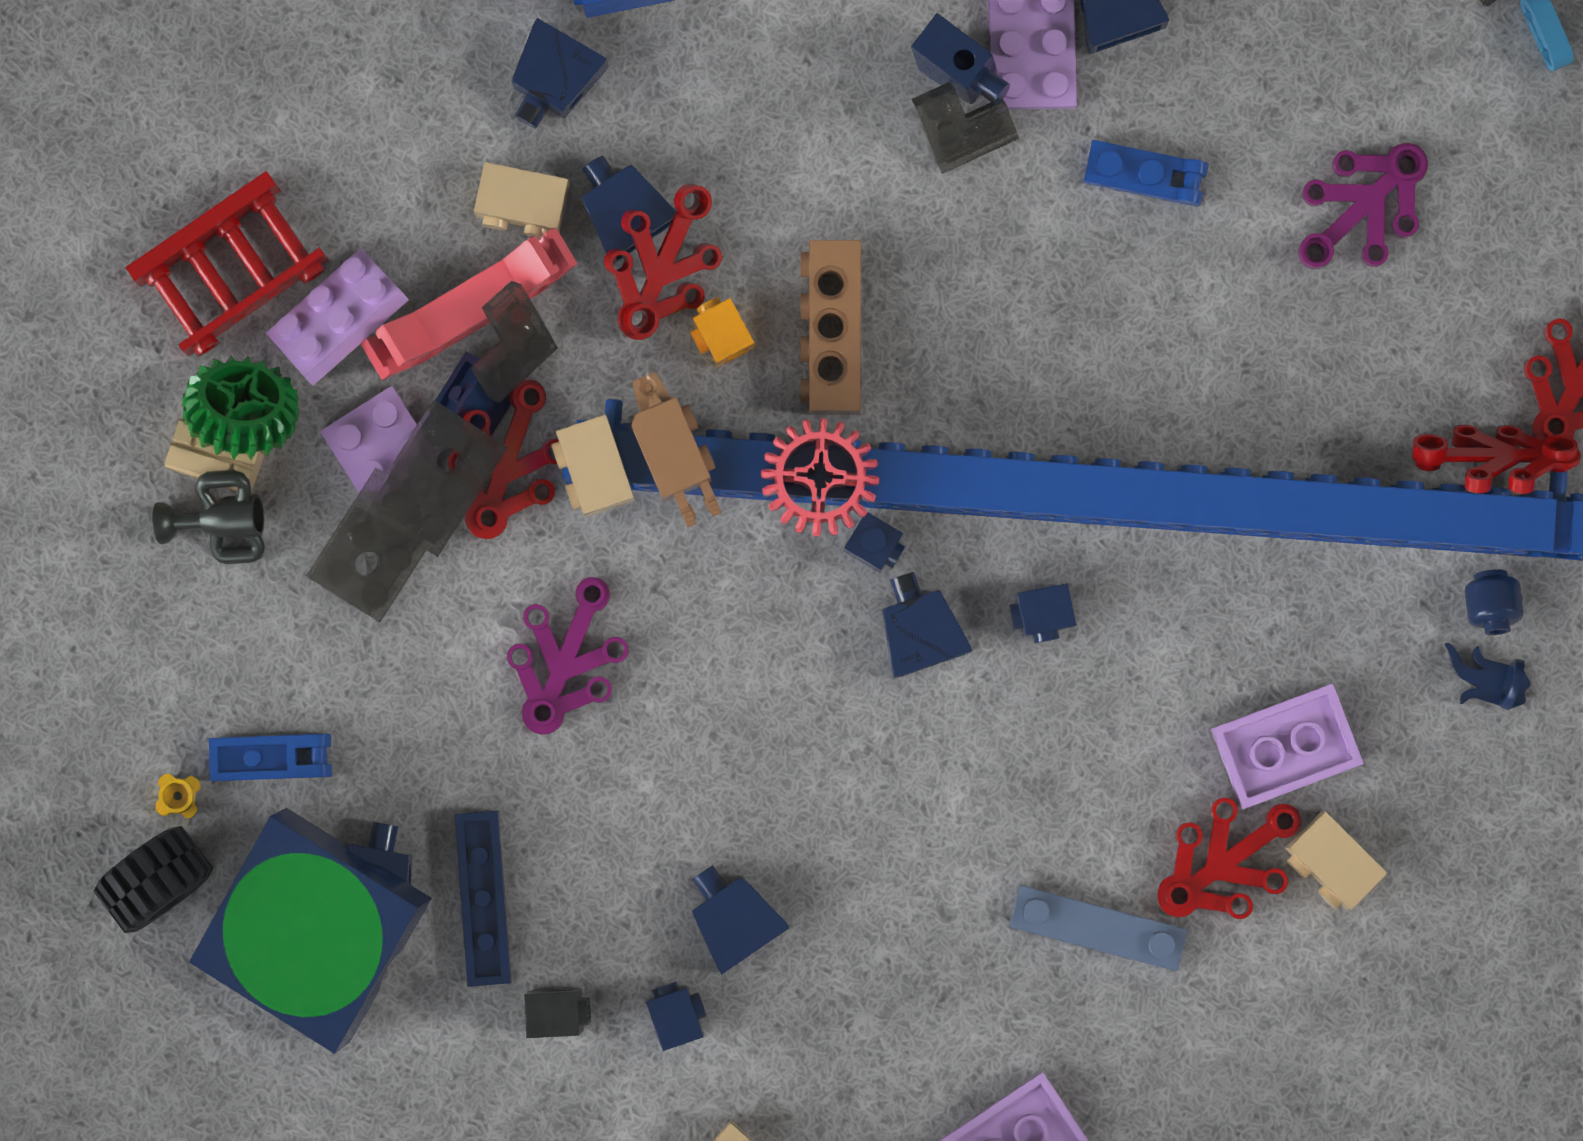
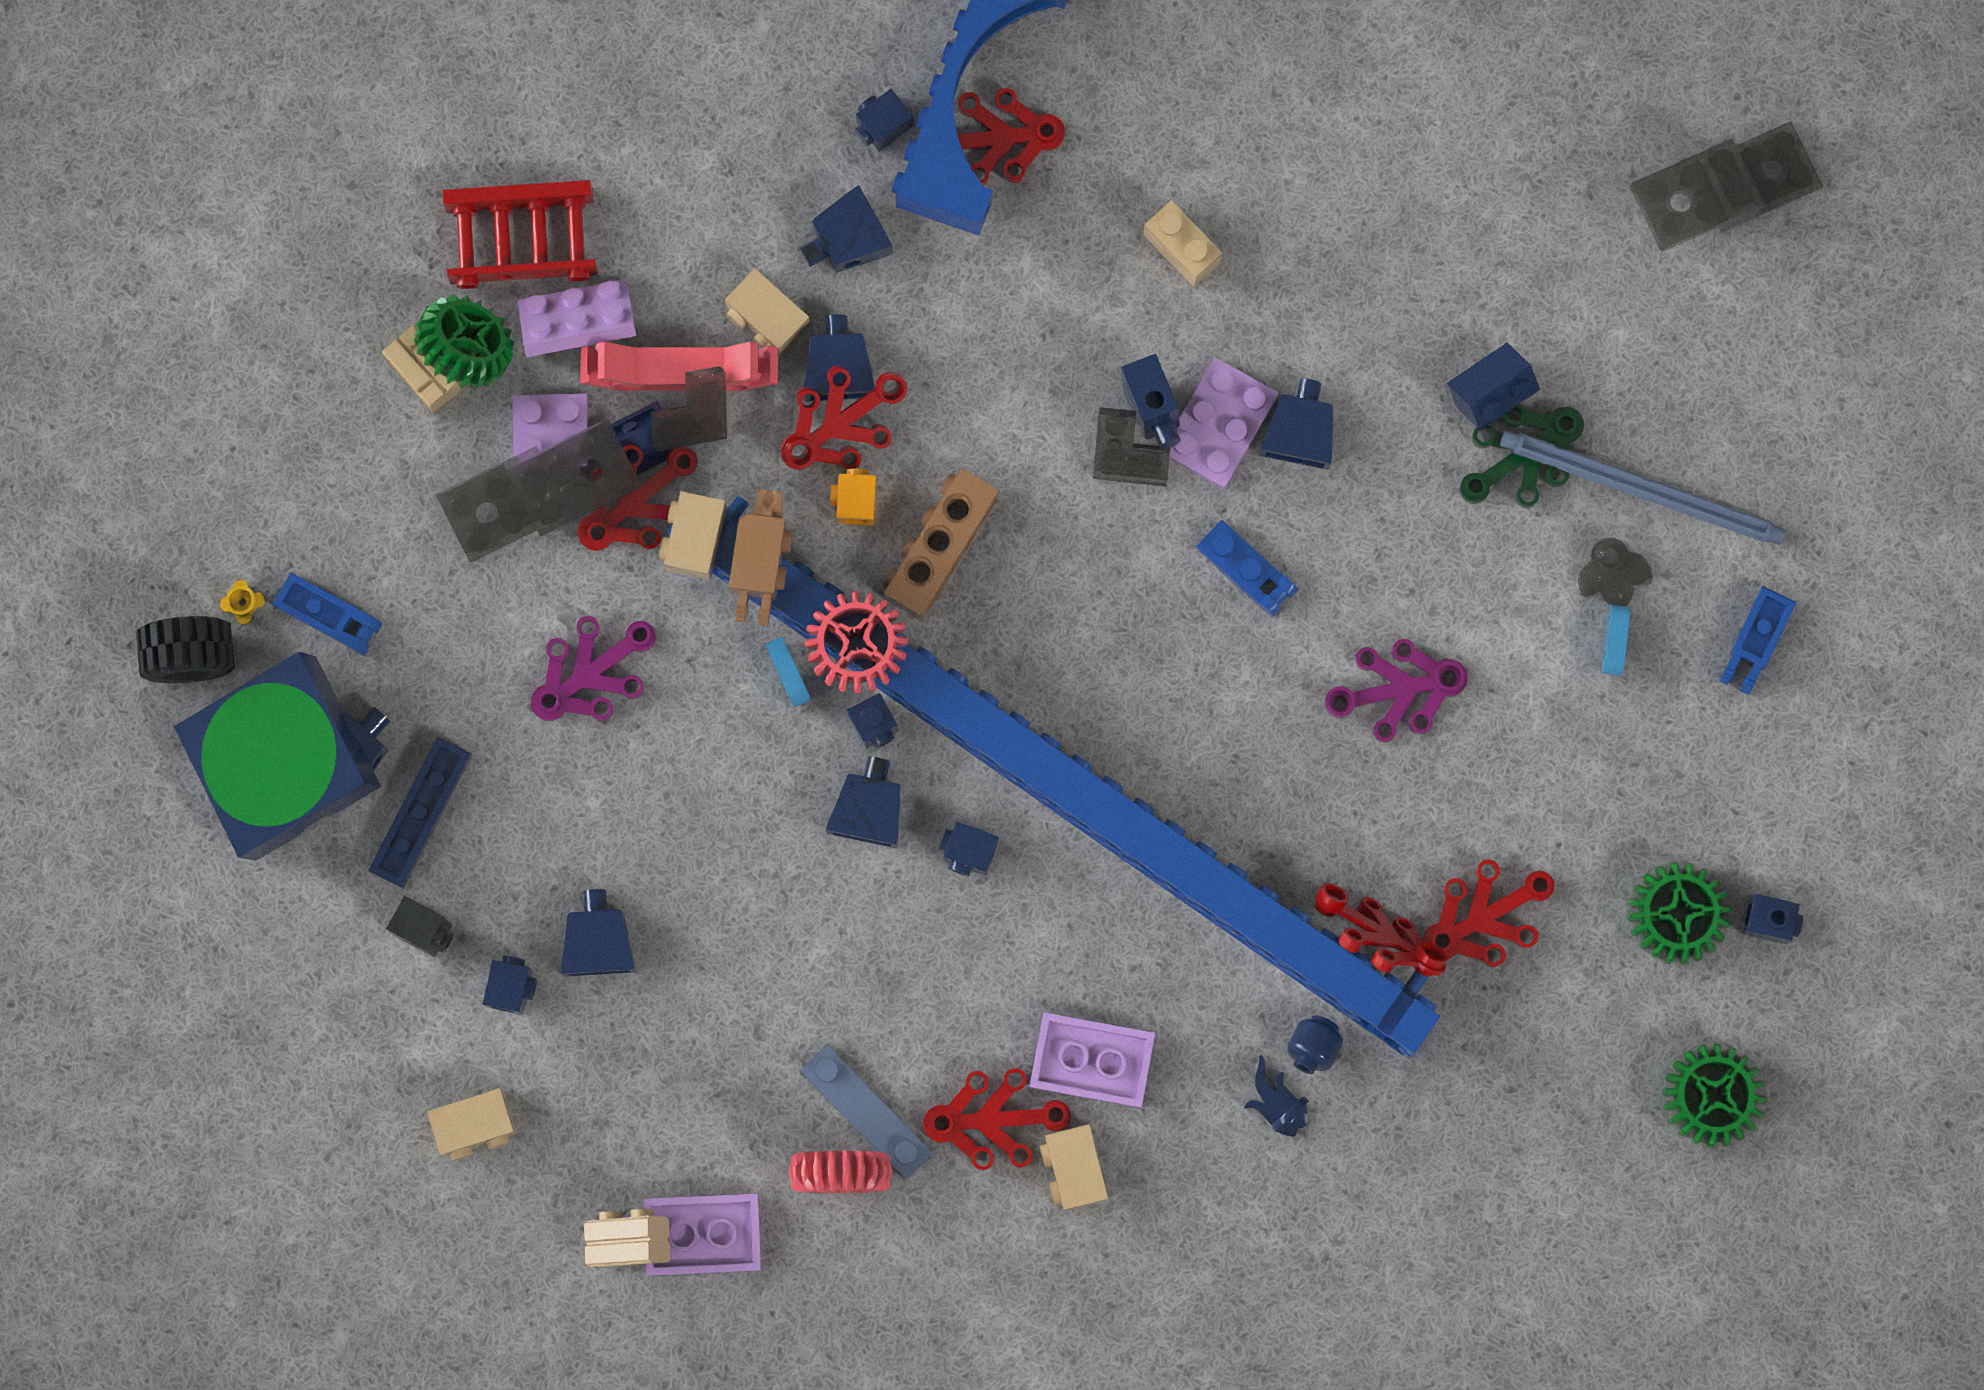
camera: 30 degrees right, 5 degrees down
(222, 518) = (400, 416): pearl dark grey piece -> none
(759, 543) = (787, 672): none -> dark azure beam
(1113, 1004) = (840, 1172): none -> coral gear

